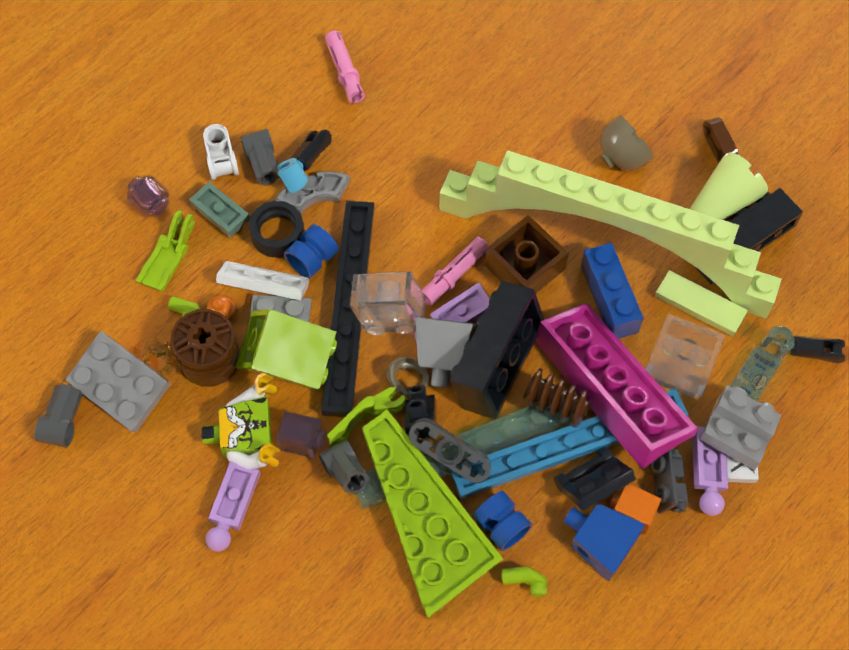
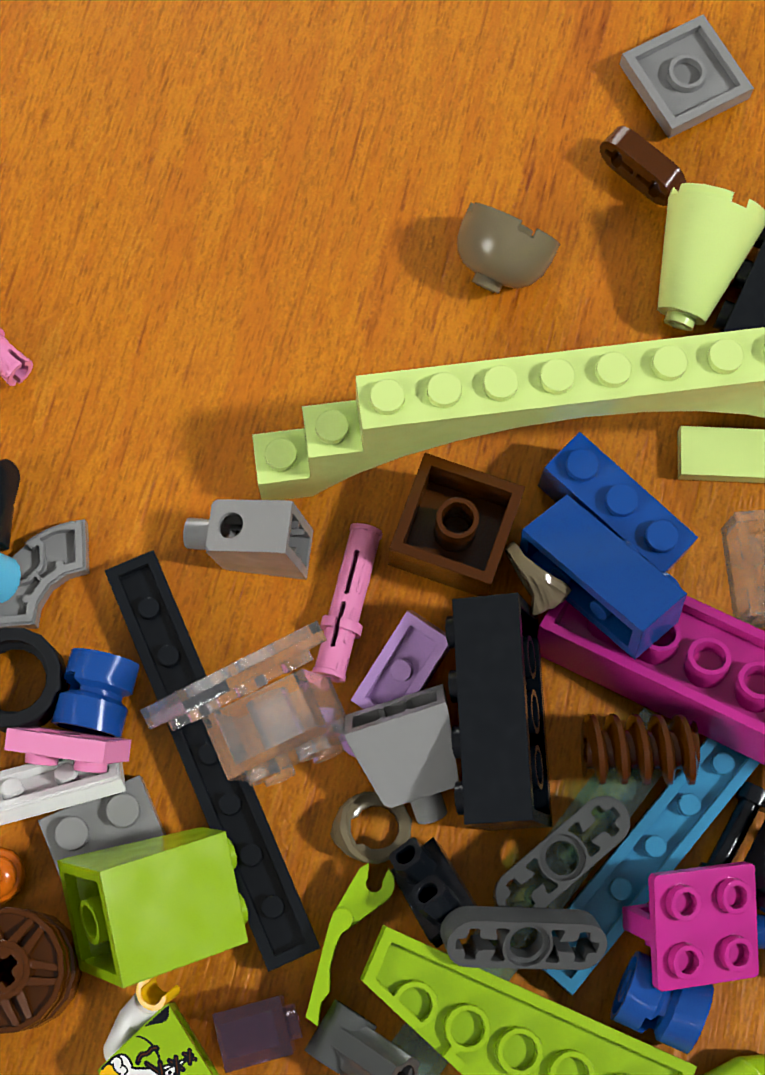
camera: 30 degrees left, 10 degrees up
(292, 269) = (47, 745): none -> bright pink plate
(368, 262) = (235, 679): none -> clear plate
(426, 218) = (254, 537): none -> light grey torso
(514, 432) = (601, 842): none -> dark grey beam
(540, 488) = (699, 925): none -> dark pink bracket
(552, 304) = (541, 586): none -> dark tan piece
(584, 312) = (606, 575): none -> blue brick
(768, 111) = (686, 76): none -> light grey plate

